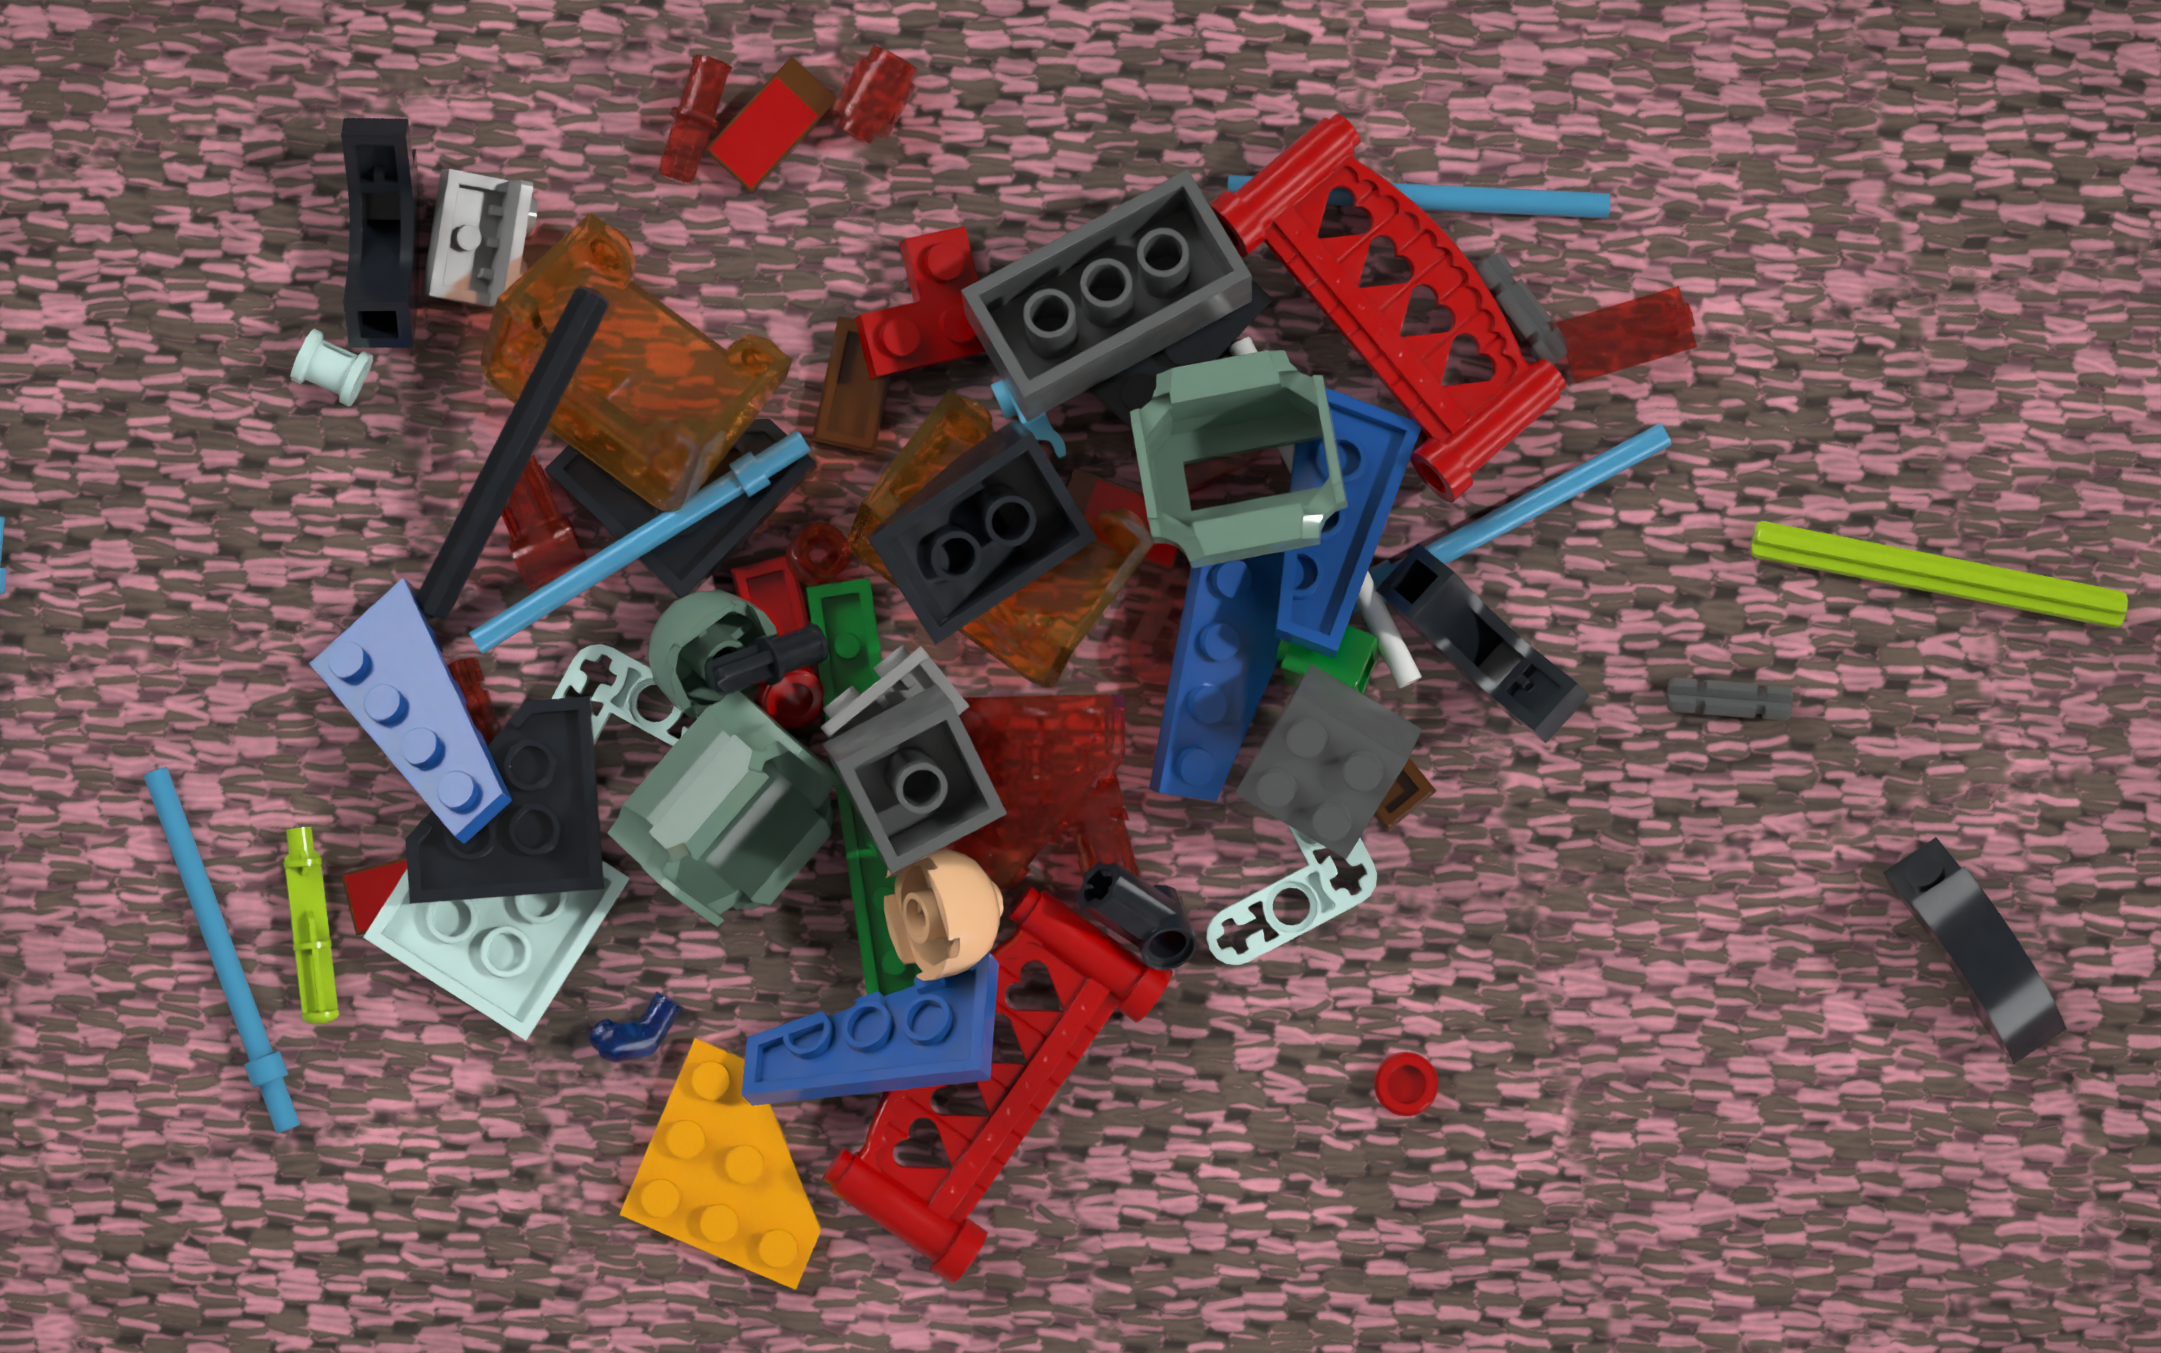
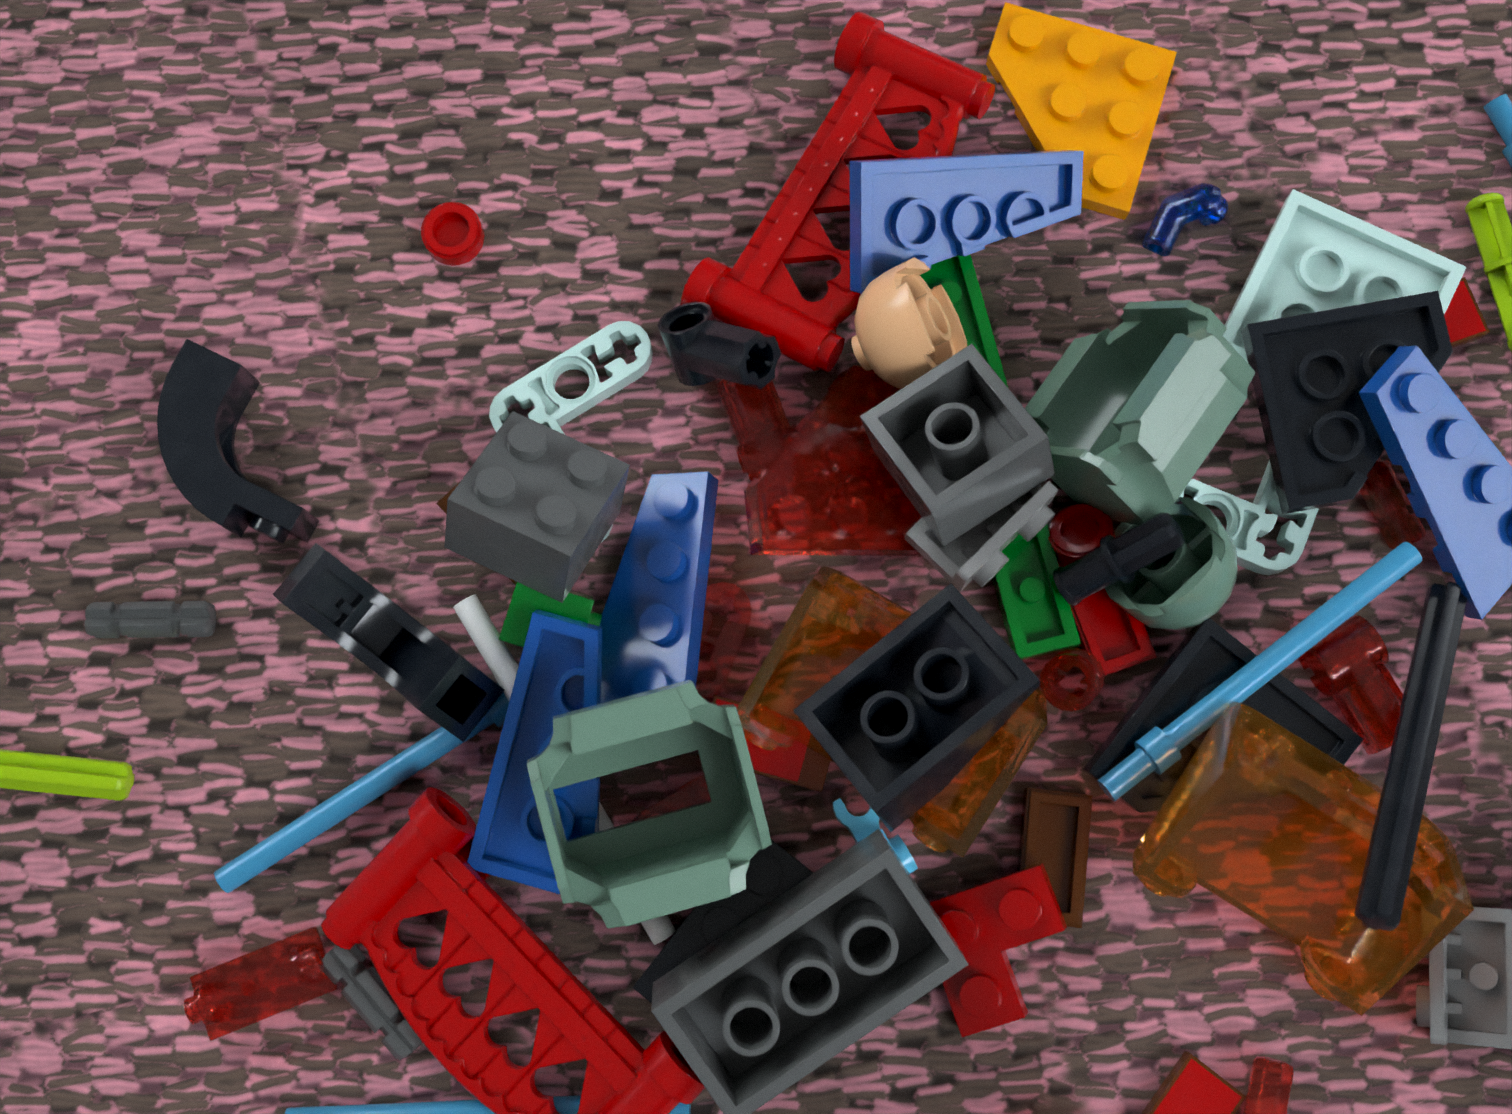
camera: 175 degrees right, 10 degrees down
(1674, 865) = (197, 438): none -> black arch

